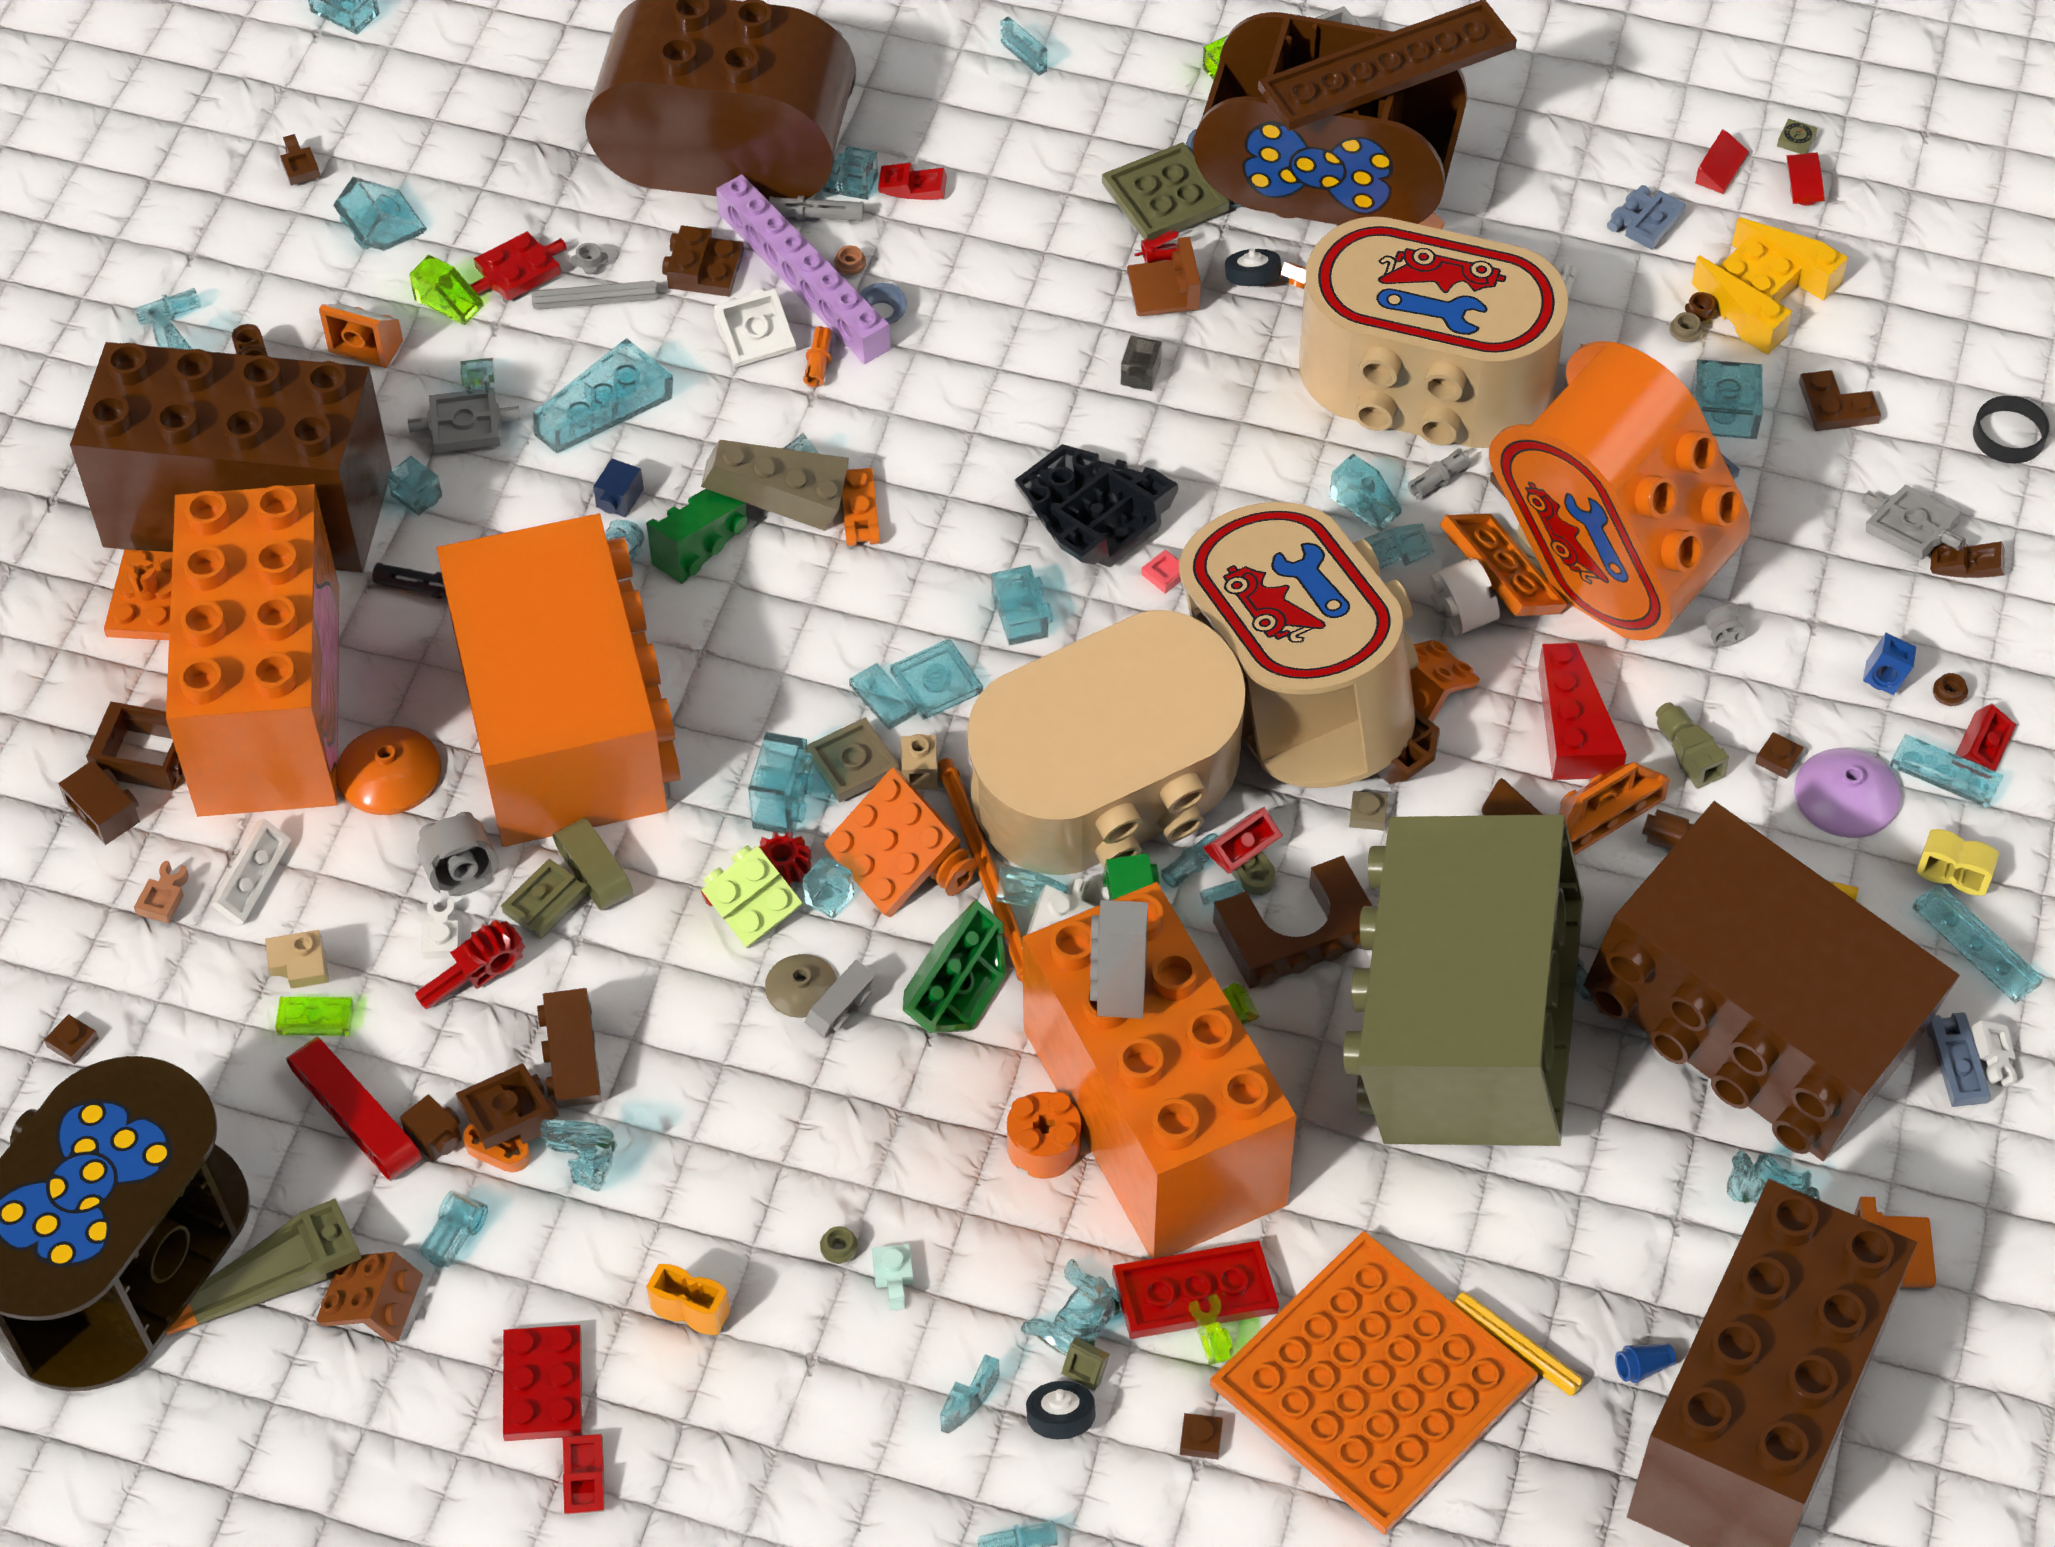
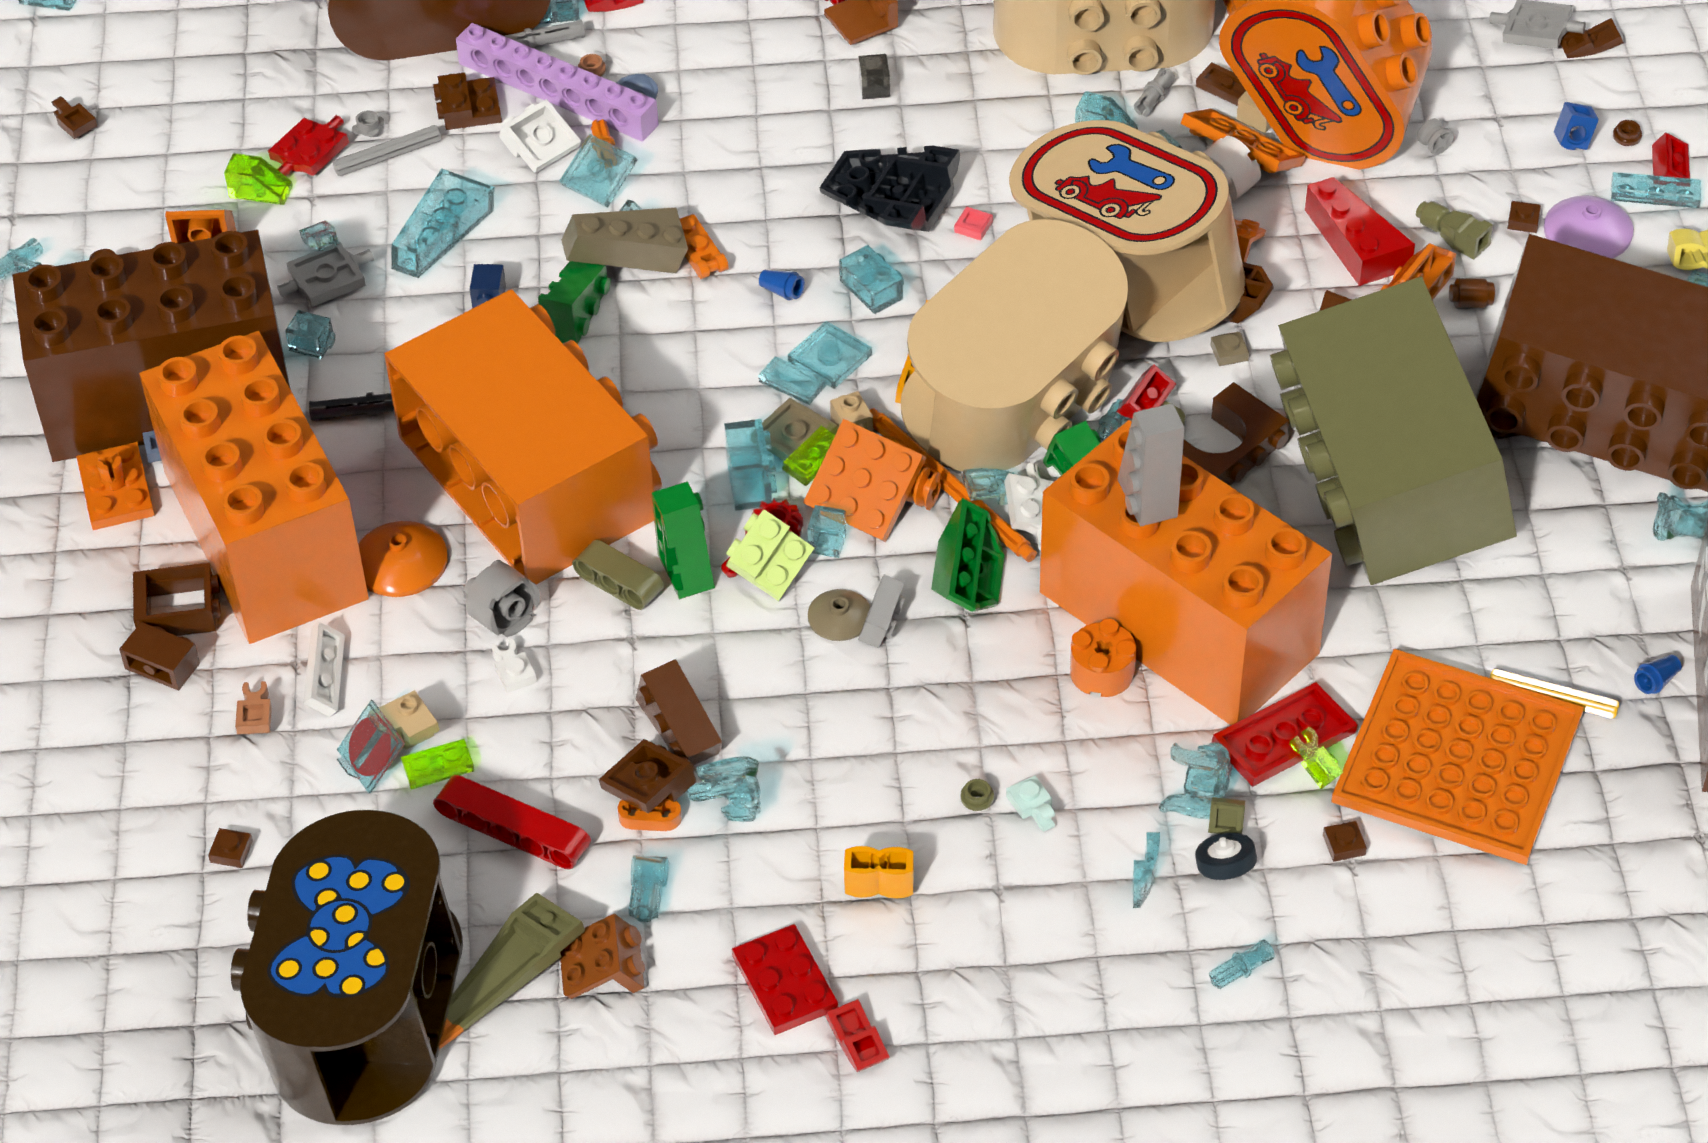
camera: 20 degrees left, 5 degrees down
(249, 977) = (369, 747): none -> clear light blue piece
(377, 214) = (165, 140): clear light blue slope -> none
(432, 1127) = (590, 812): reddish brown brick -> none
(478, 959) = (560, 676): red gear -> none
(544, 898) = (590, 613): olive plate -> none
(668, 849) = (682, 539): none -> green wedge
(795, 386) = (598, 170): none -> clear light blue plate
(843, 797) = (808, 457): none -> clear neon green plate
(927, 581) = (783, 283): none -> blue cone

